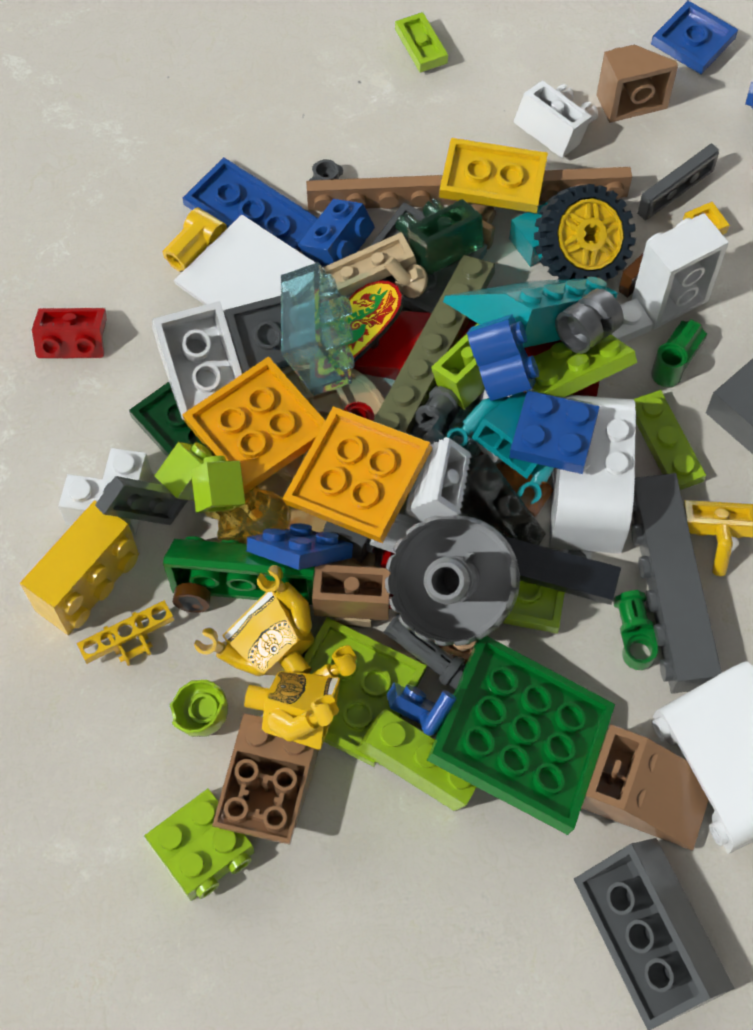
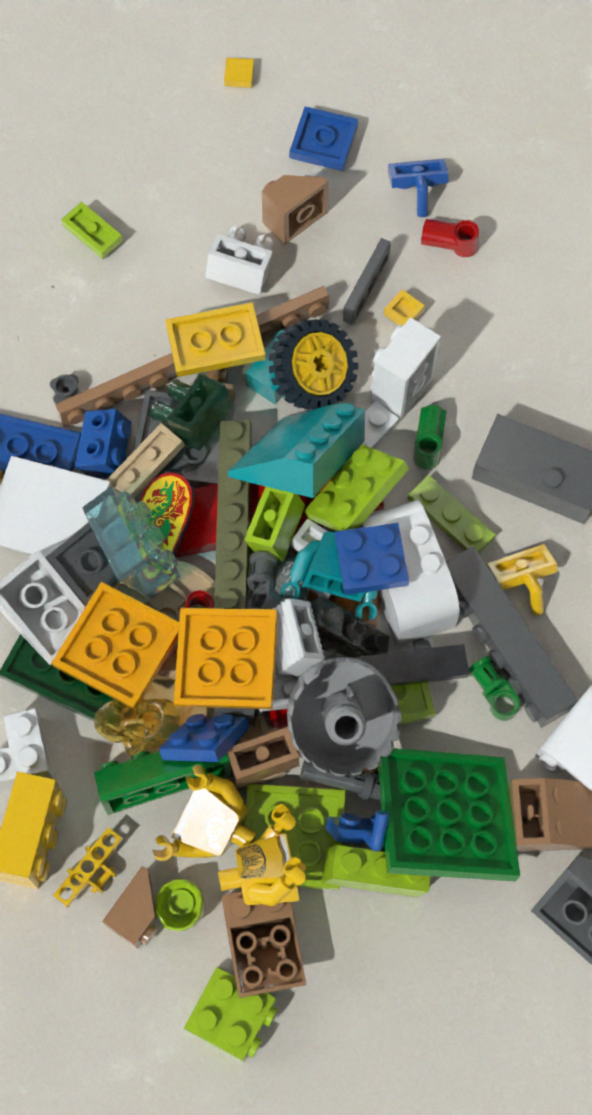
camera: 25 degrees left, 5 degrees up
(139, 501) = (54, 753): dark grey plate -> none
(148, 694) = (134, 911): none -> medium nougat slope
(176, 469) = (77, 709): lime brick -> none
(191, 597) = (128, 814): reddish brown tile -> none
(217, 485) = (114, 715): lime brick -> none
(411, 280) = (185, 462): tan plate -> none
(502, 357) = (303, 512): blue brick -> none
(589, 321) = (357, 449): flat silver wheel -> none
(629, 277) = (365, 381): reddish brown tile -> none

